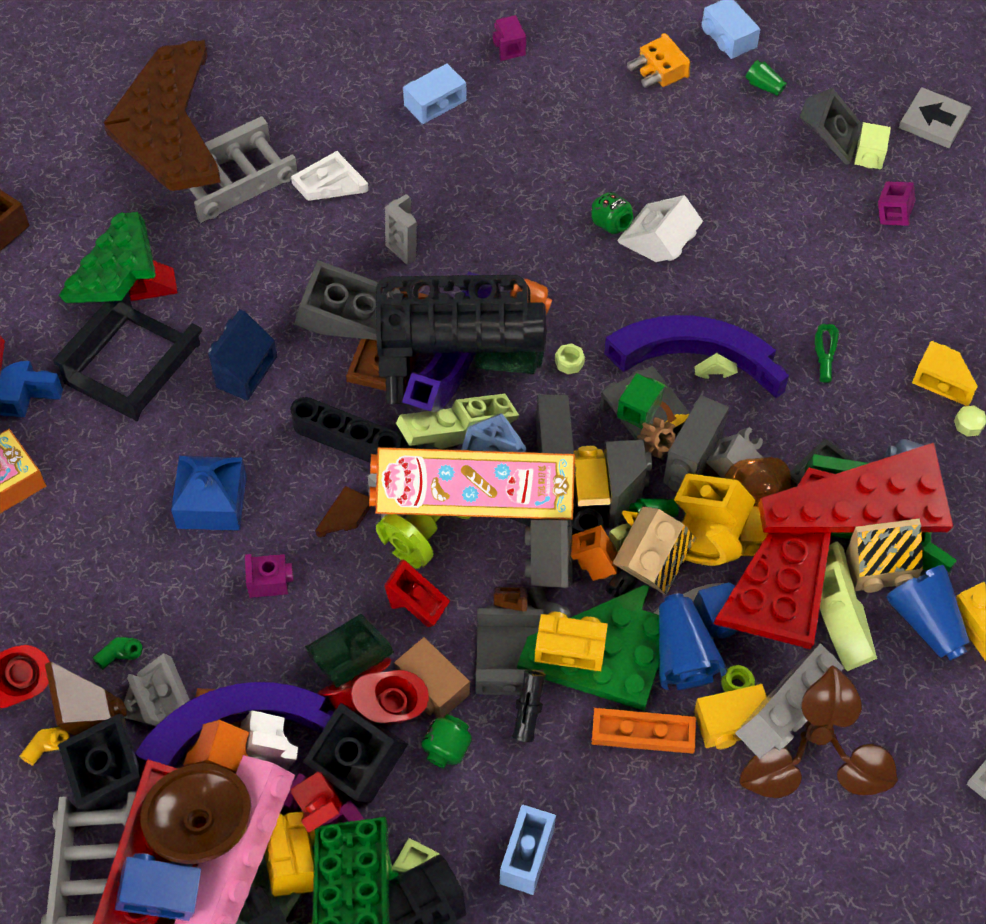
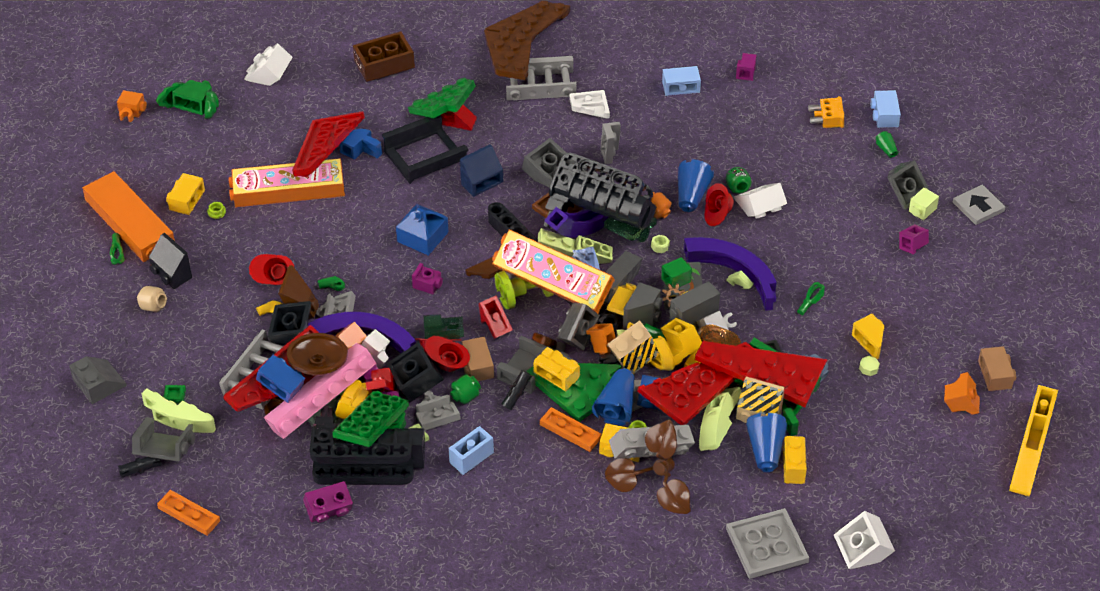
camera: 30 degrees right, 10 degrees down
(422, 801) = (436, 411): none -> light grey slope
(558, 246) = (692, 183): none -> blue cone
(611, 264) = (718, 204): none -> red piece

